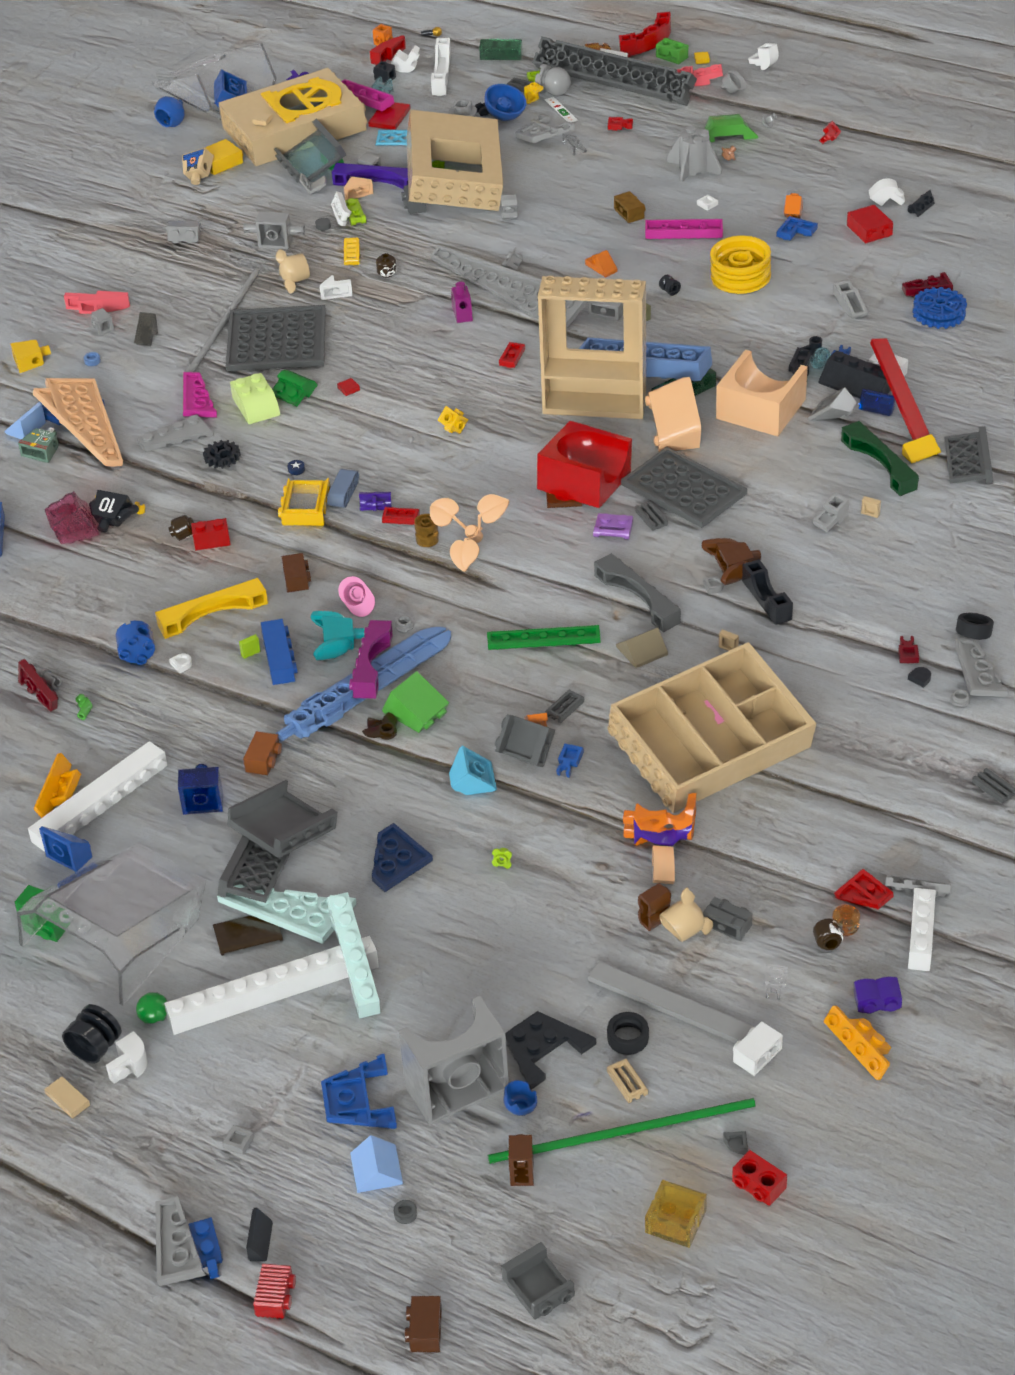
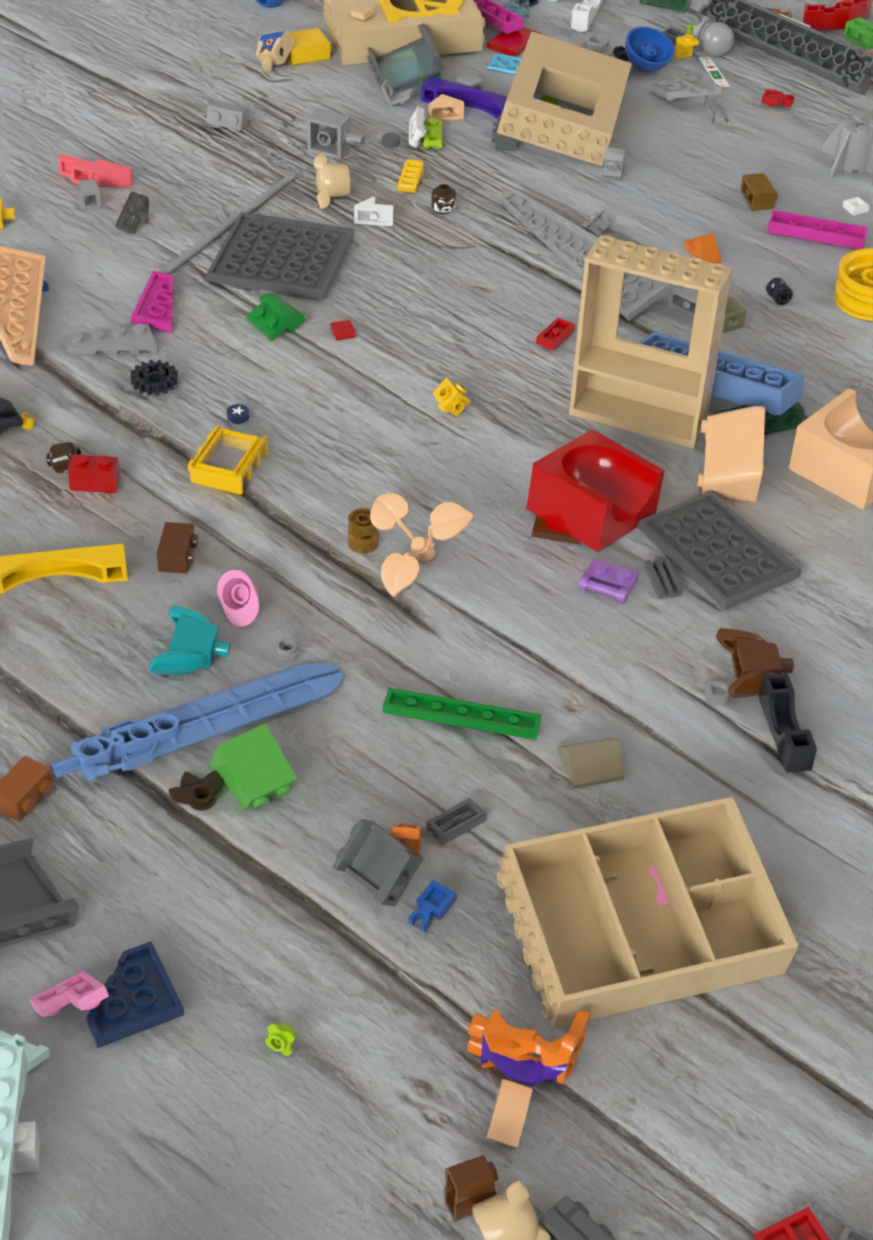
camera: 10 degrees right, 0 degrees up
(92, 359) = (59, 234): medium blue tile -> none
(249, 646) = (75, 633): lime tile -> none
(254, 398) = (223, 319): yellowish green brick -> none
(278, 652) = (106, 650): blue brick -> none
(343, 488) = (282, 452): sand blue beam -> none
(357, 861) = (79, 990): none -> bright pink plate
(374, 500) = (315, 478): dark purple hips -> none
(375, 640) = (240, 662): magenta arch -> none
(400, 515) = (338, 503): red plate -> none
(461, 297) = (515, 255): magenta torso -> none
(472, 773) = (289, 892): medium azure slope -> none
(615, 573) = (588, 645): dark grey arch -> none
(728, 640) = (712, 781): tan tile -> none

